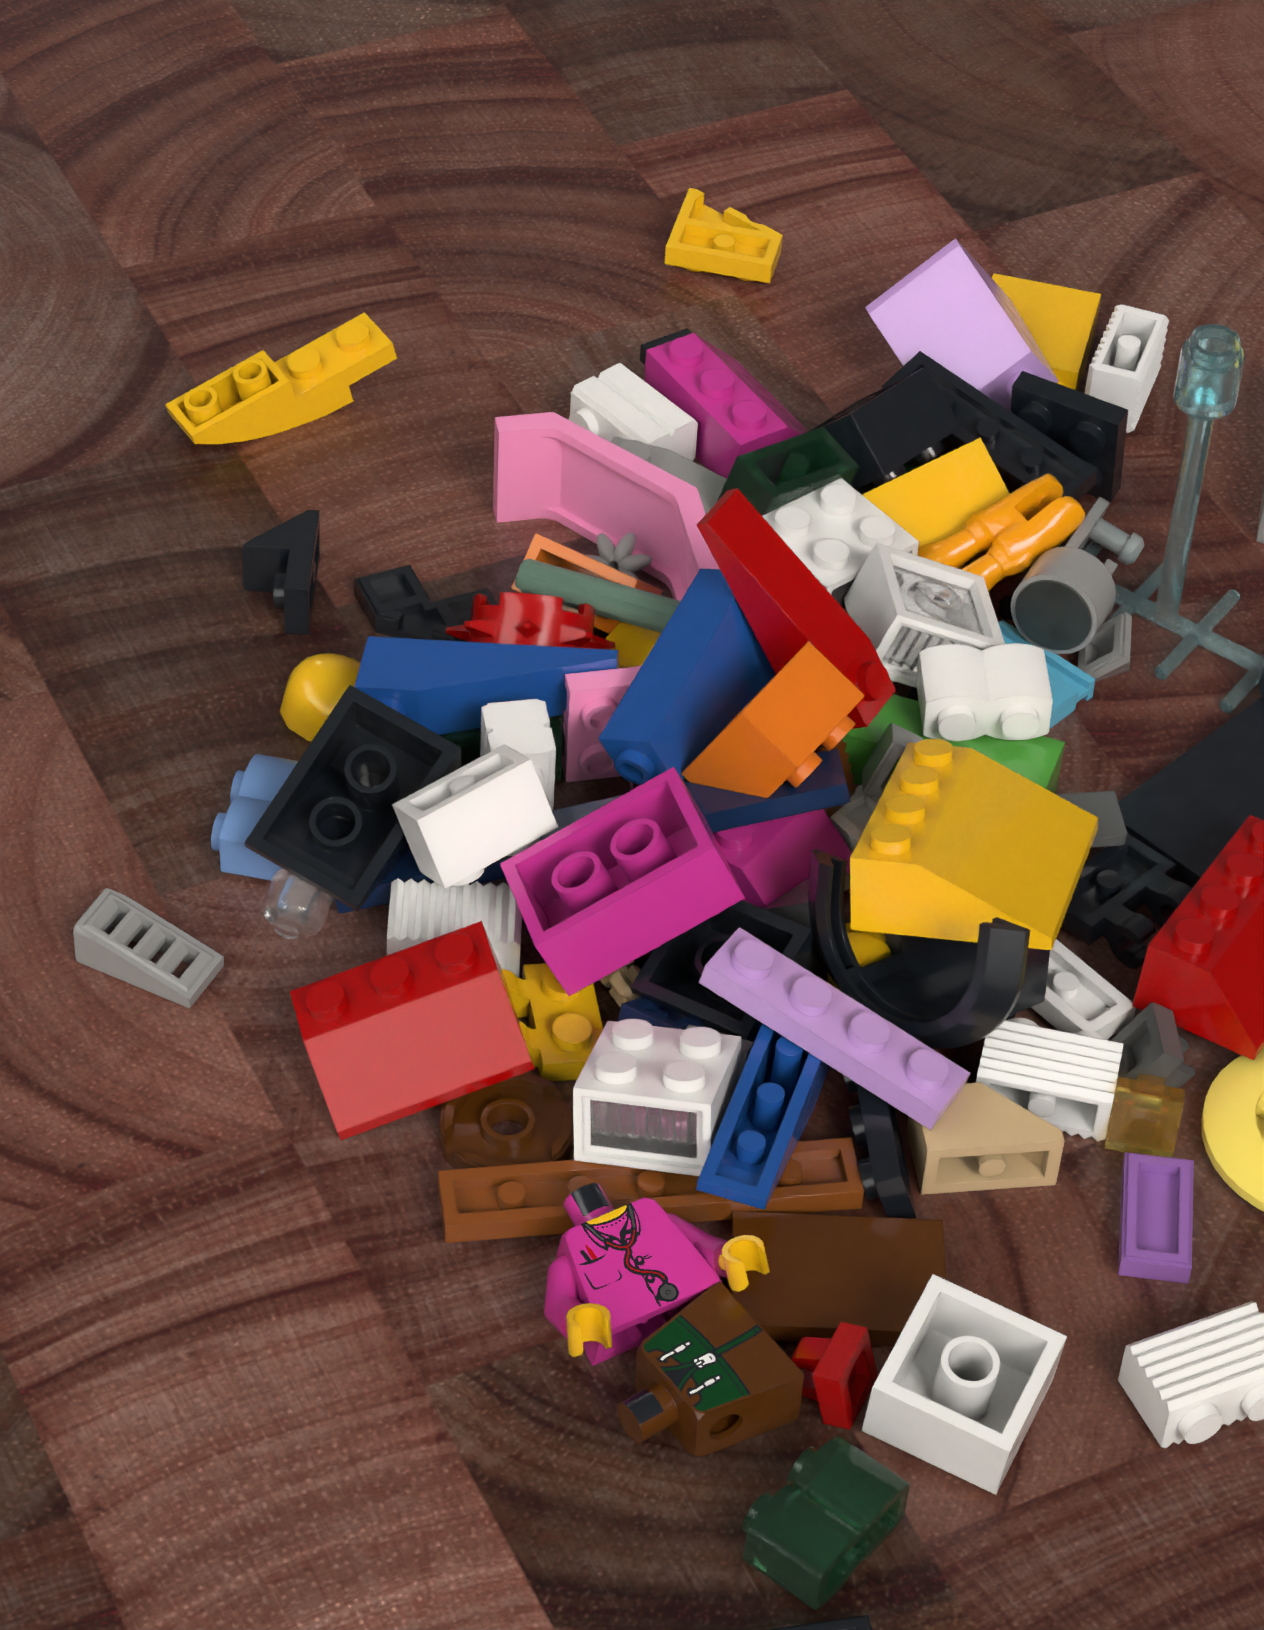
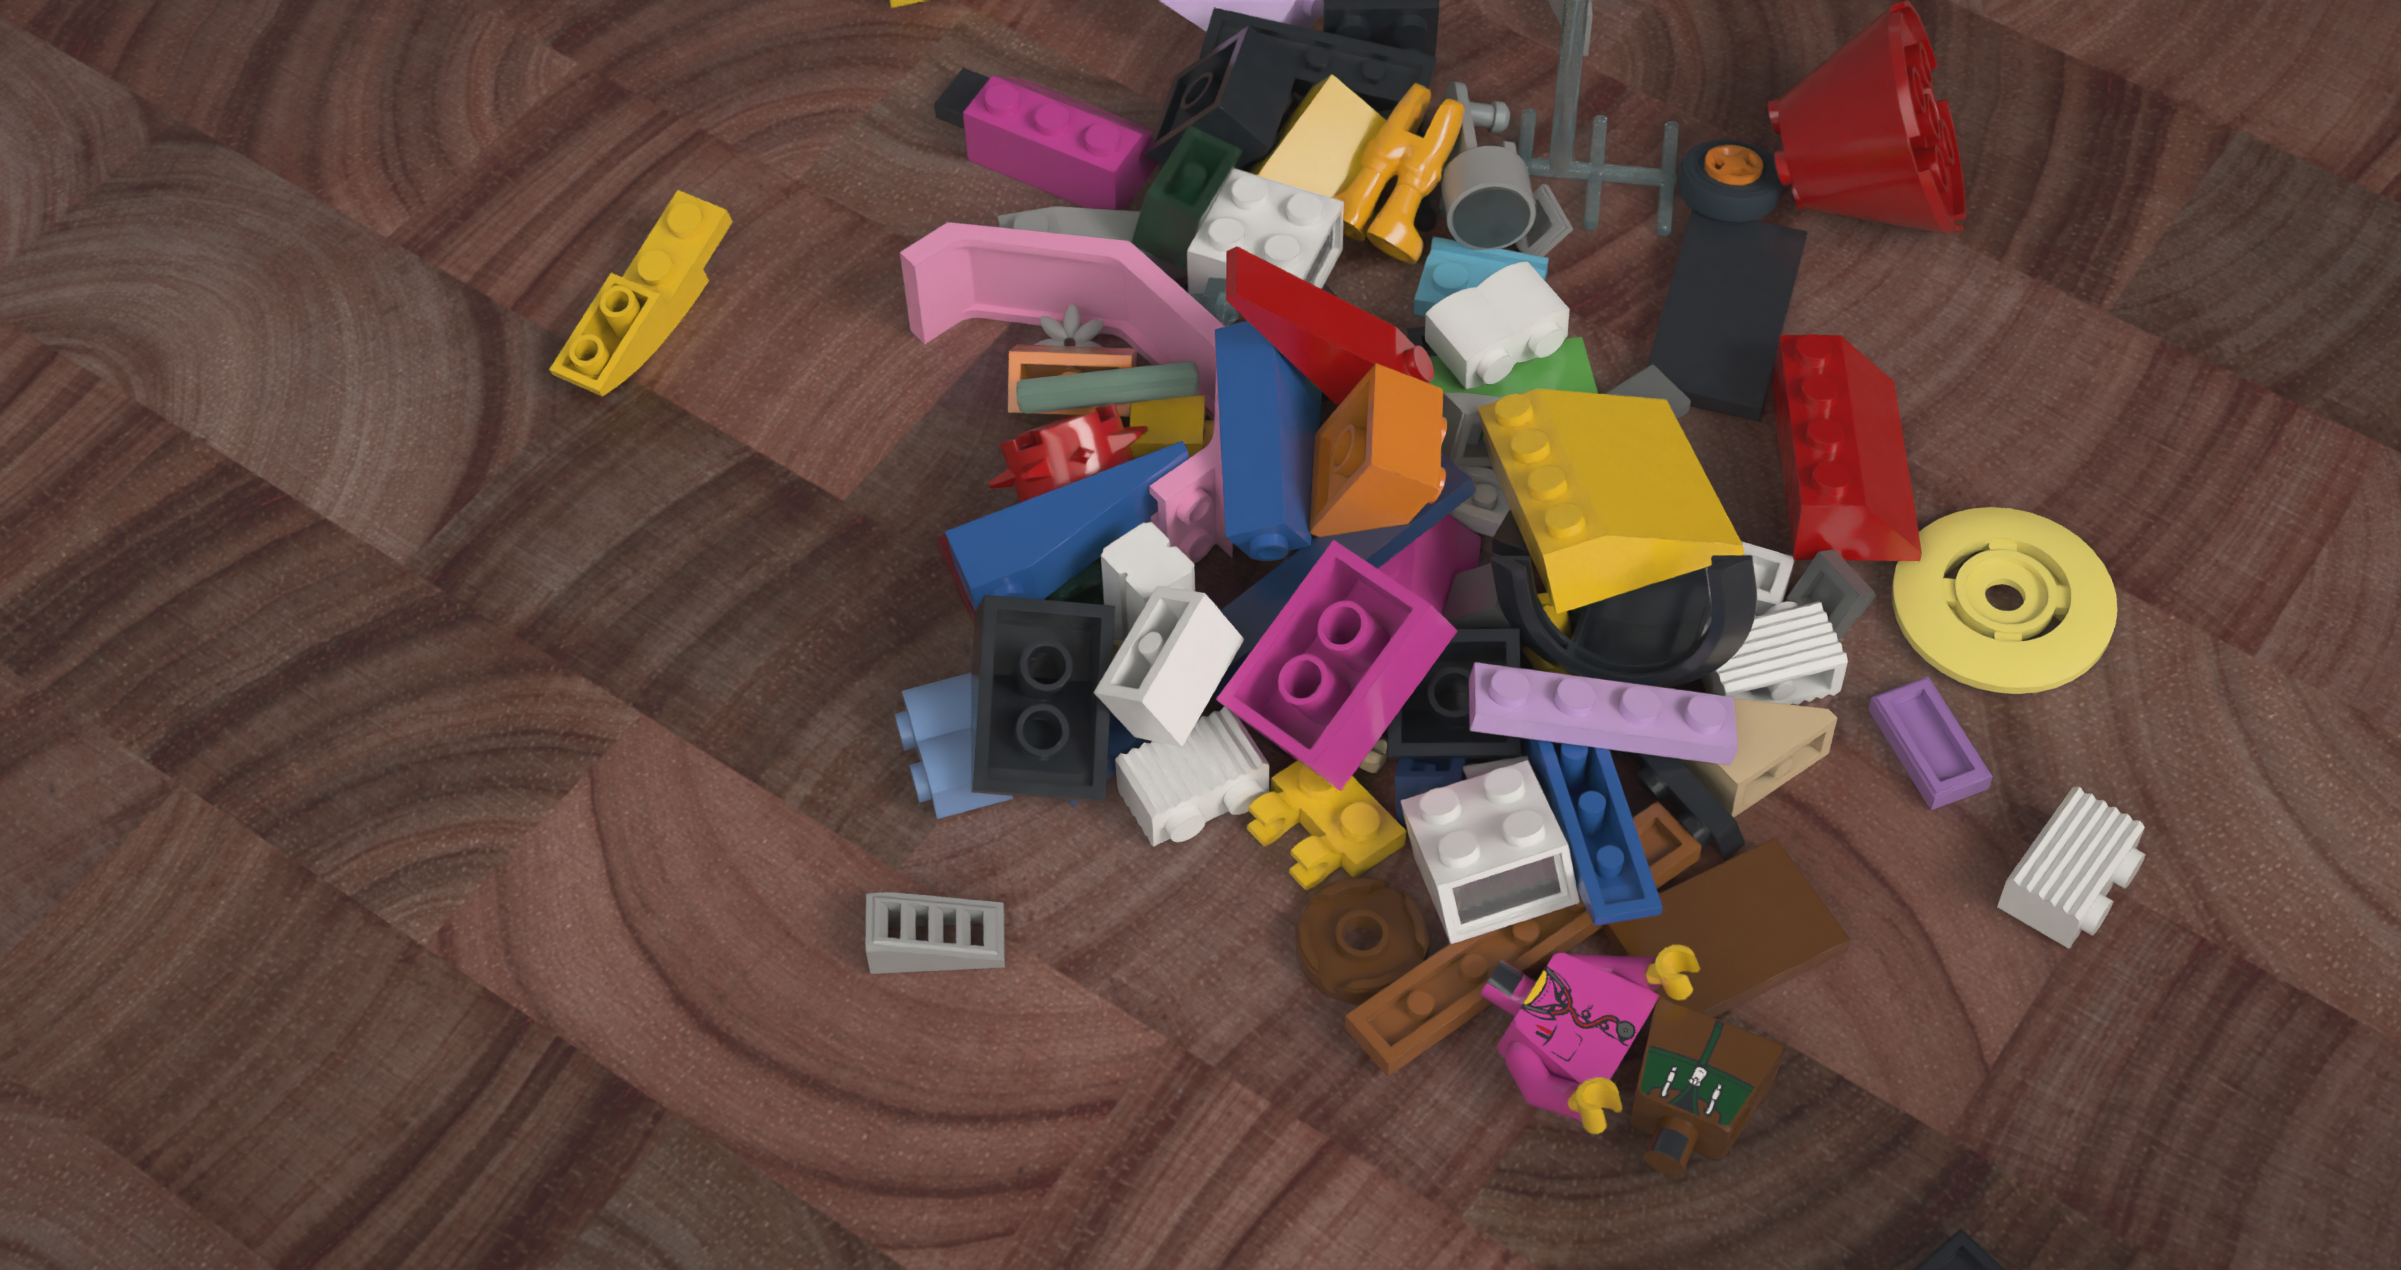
camera: 25 degrees left, 10 degrees up
(287, 564) = (785, 479): black slope -> none
(295, 906) = (1031, 822): clear piece -> none
(315, 690) = (911, 598): yellow hair -> none
(403, 609) = (913, 477): black tile -> none
(411, 1030) = (1238, 895): slope -> none
(631, 409) = (979, 183): white brick -> none
(823, 1520) = (1875, 1164): clear green brick -> none
(838, 1372) = (1792, 1024): red tile -> none
(918, 604) = (1394, 268): white piece -> none
(963, 1383) = (1910, 983): white brick -> none
(1112, 890) = (1715, 435): black plate -> none
(1145, 1116) = (1874, 656): clear yellow tile -> none

